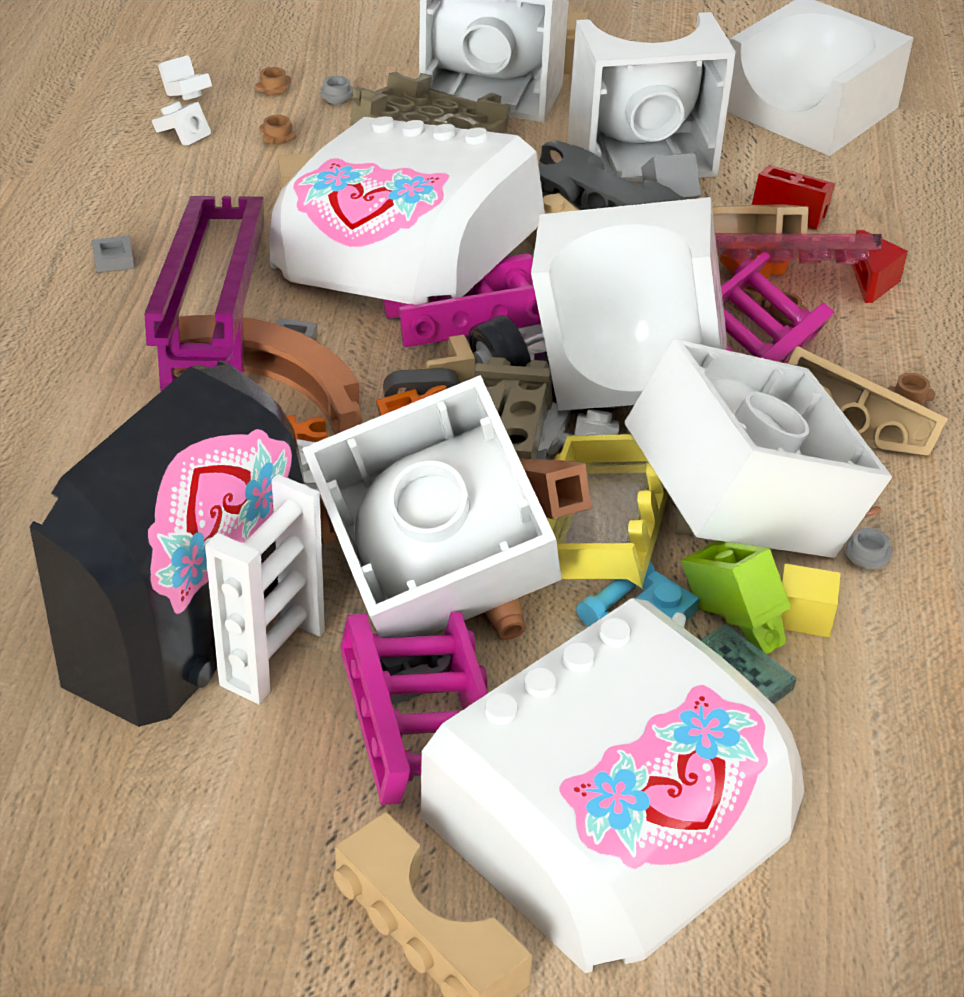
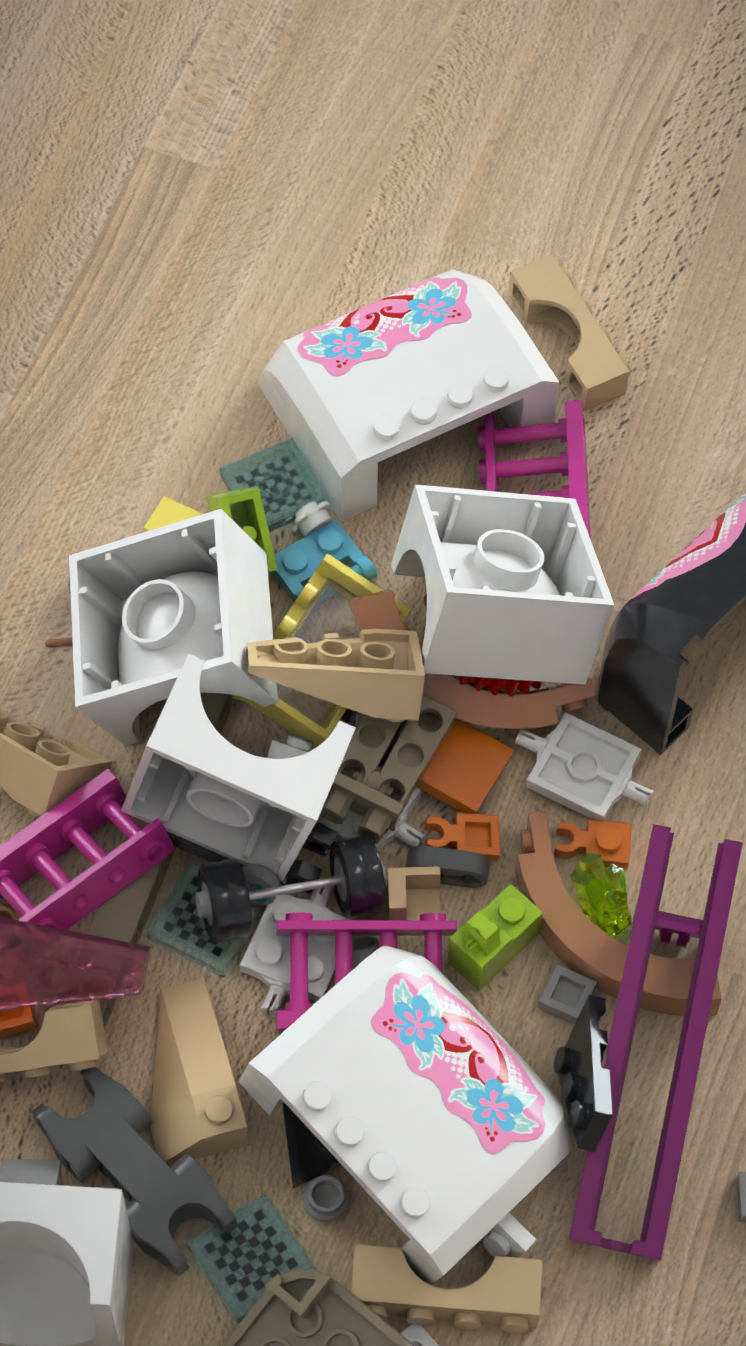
camera: 165 degrees left, 20 degrees up
(239, 583) = (643, 552): white fence -> none
(272, 372) = (602, 893): none -> clear neon green rock
(275, 276) = (581, 1078): none -> black wing
(371, 335) = (494, 936): none -> lime hinge
(570, 401) = (369, 674): none -> tan wedge

